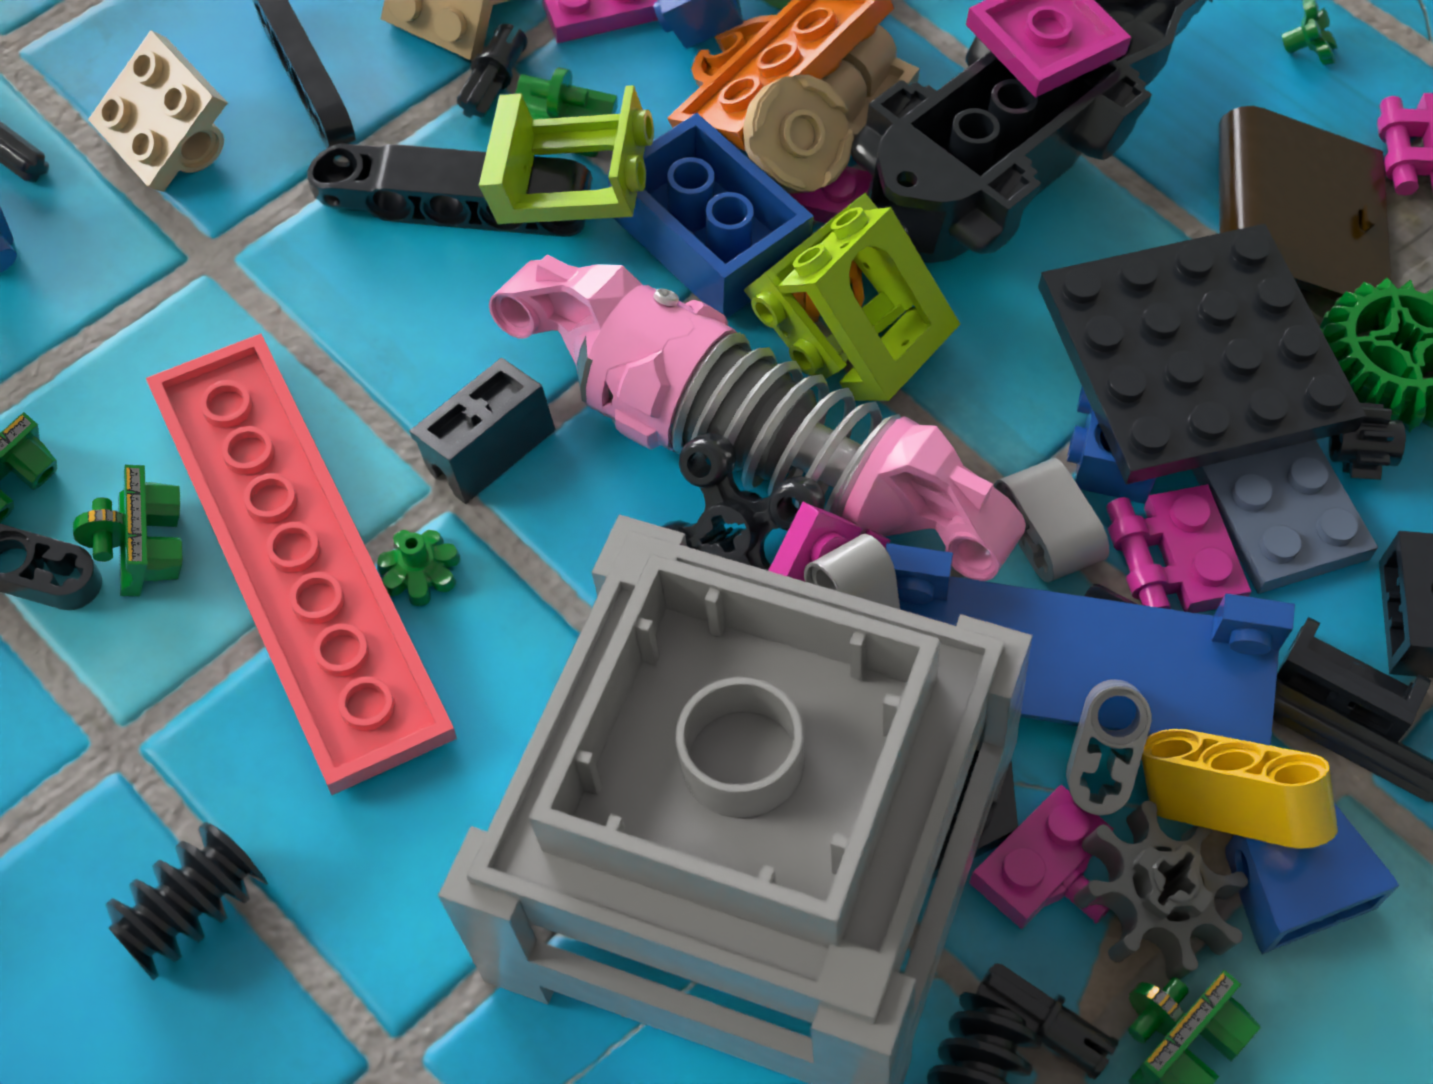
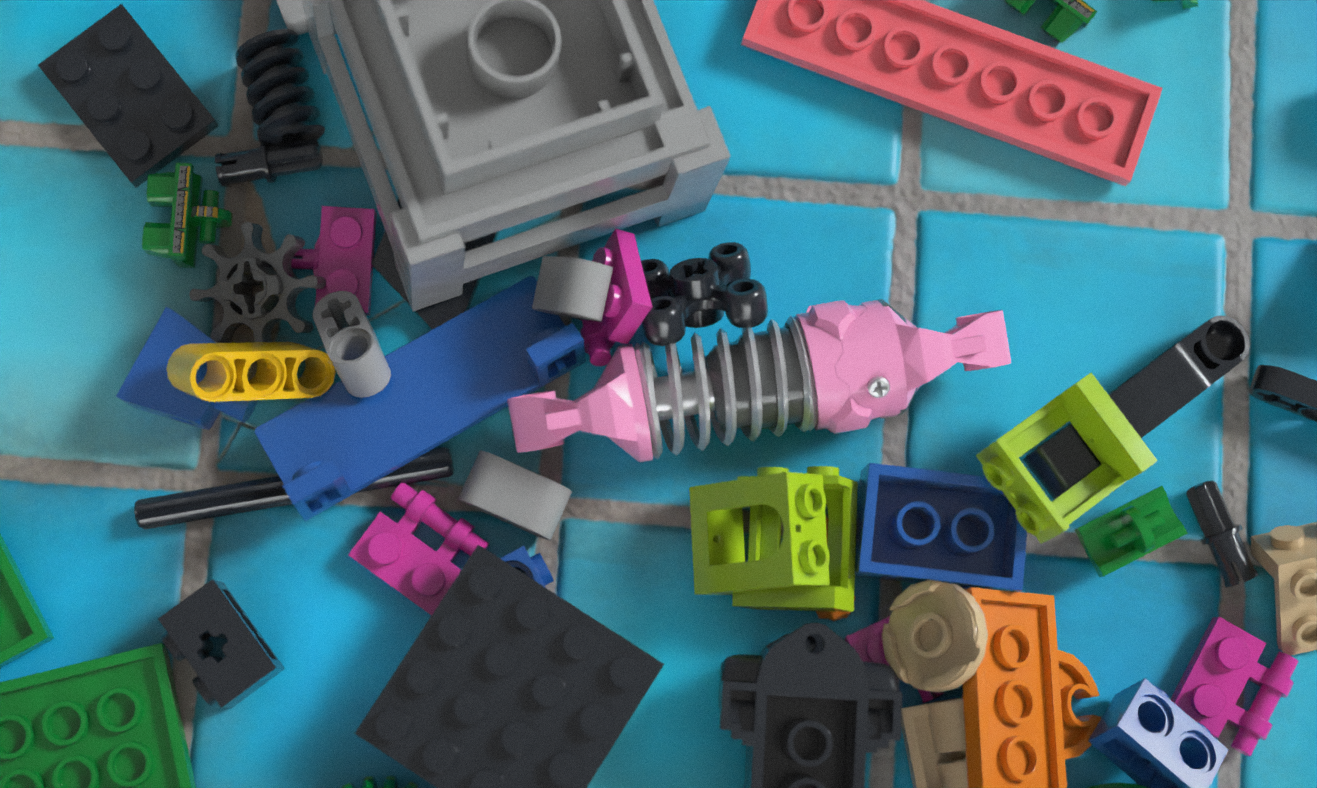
camera: 130 degrees right, 20 degrees up
(417, 565) = (874, 129): green plant -> none
(484, 429) = (924, 239): black hinge -> none
(1287, 515) = (358, 640): sand blue plate -> none
(1351, 684) = (239, 540): black hinge -> none
(1374, 445) = (345, 750): black gear -> none

